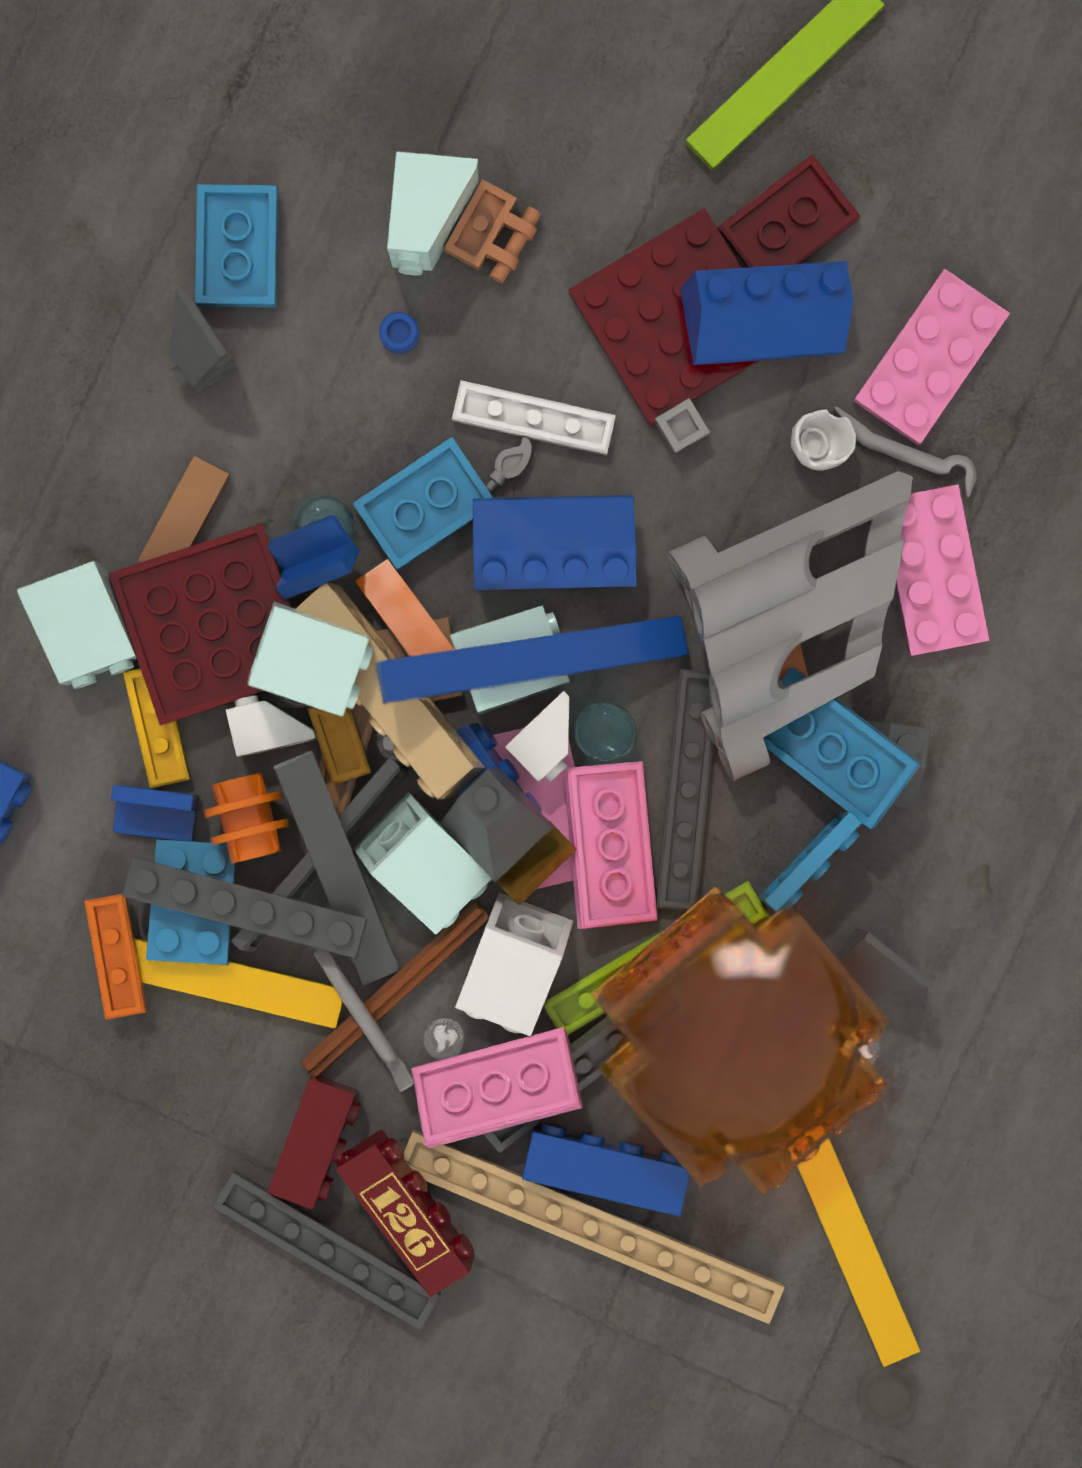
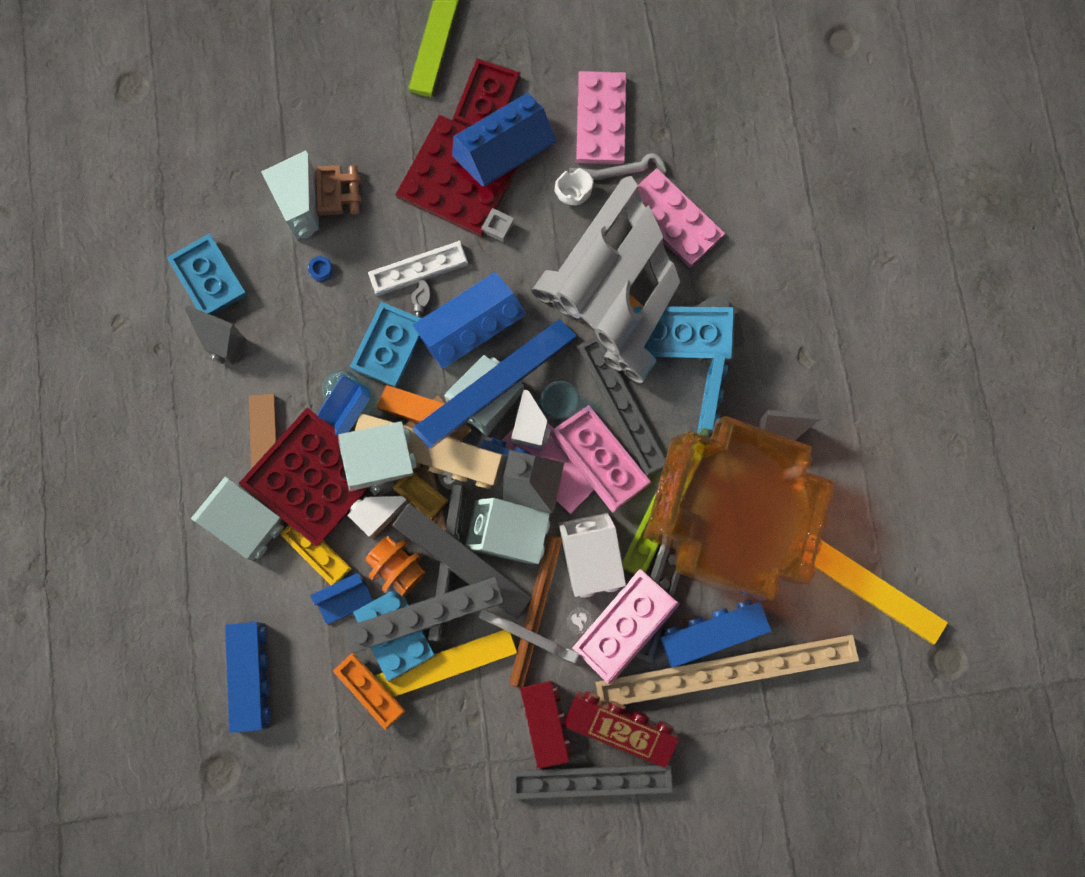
camera: 30 degrees left, 10 degrees down
(536, 865) = (568, 492): pearl gold tile -> none

